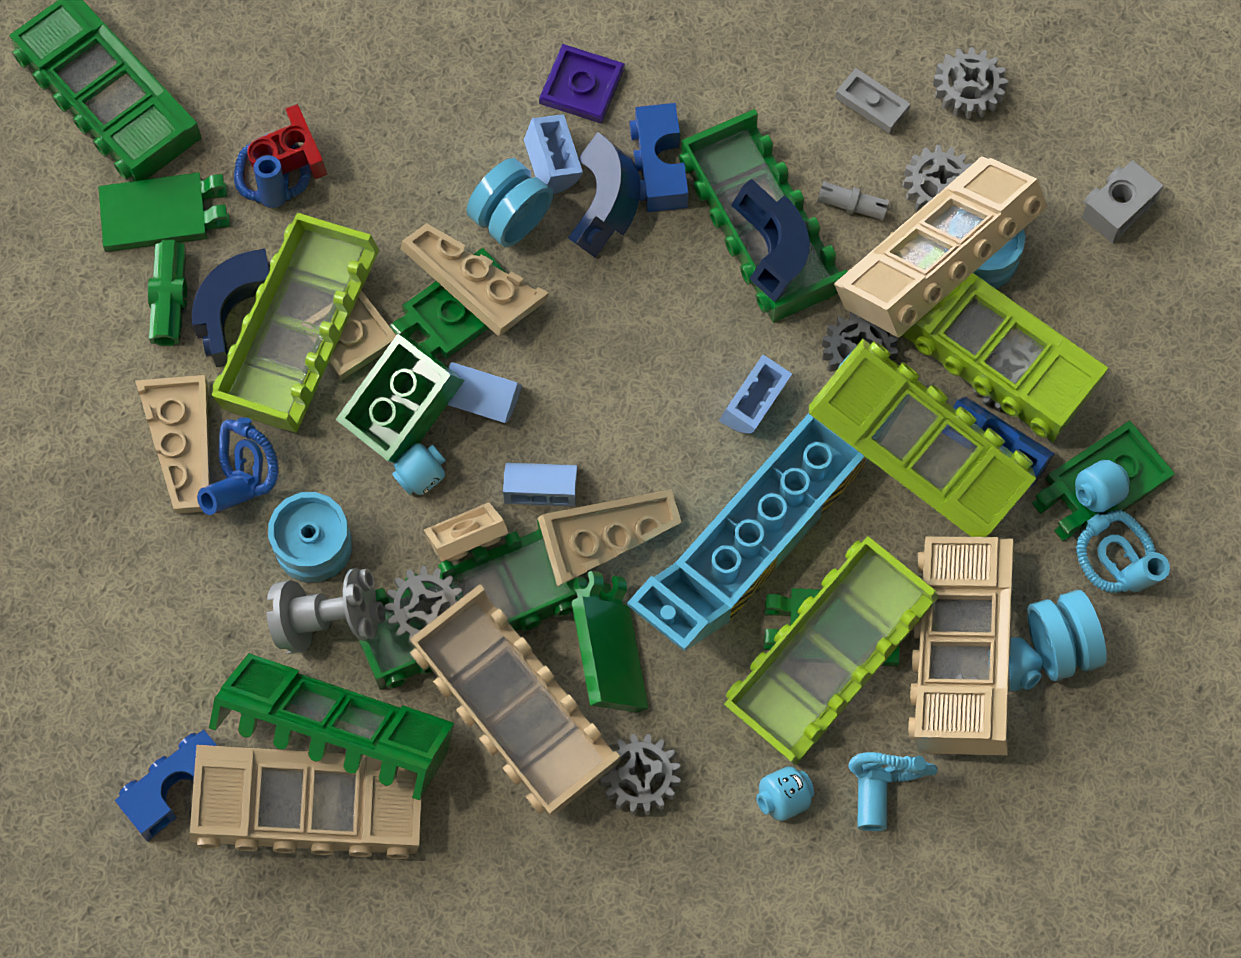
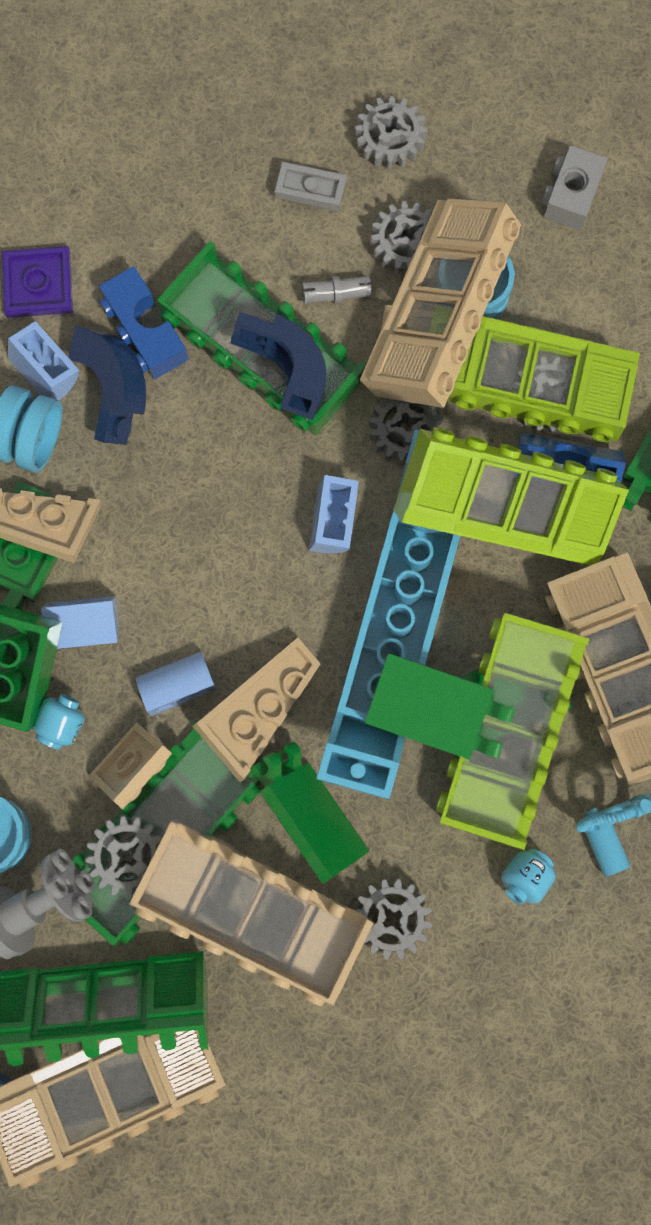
camera: 25 degrees left, 10 degrees up
(765, 594) = (435, 708): none -> green tile

